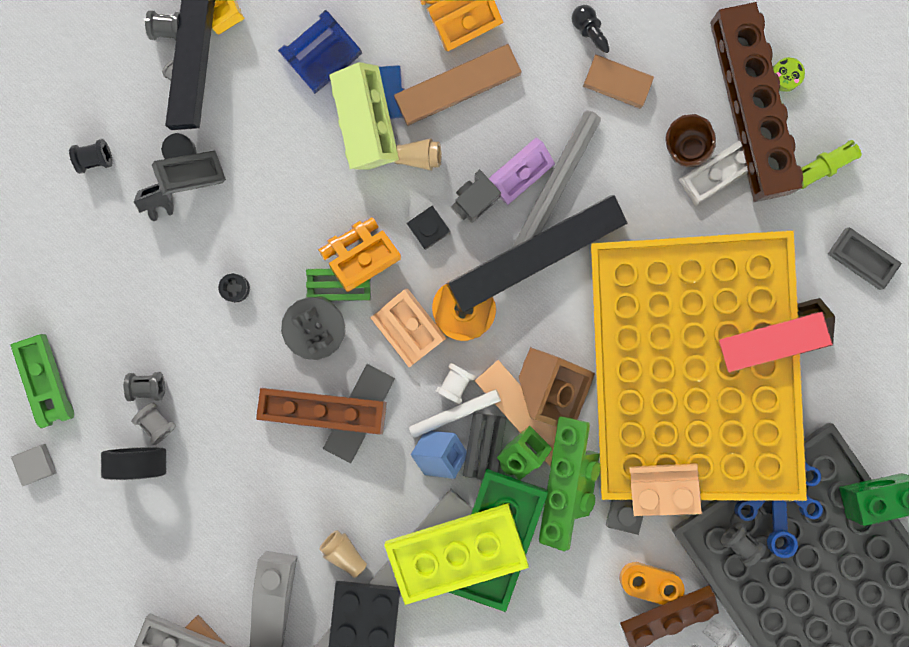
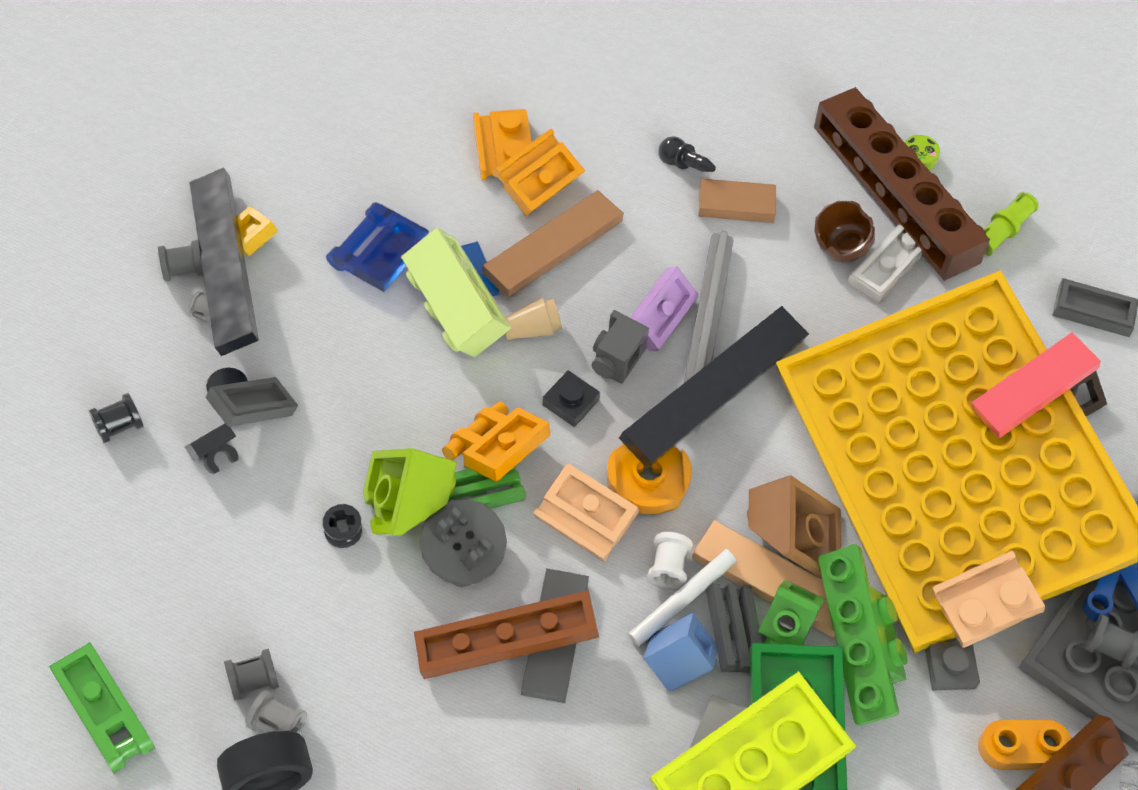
camera: 25 degrees left, 30 degrees down
(283, 279) = (406, 488): none -> lime slope

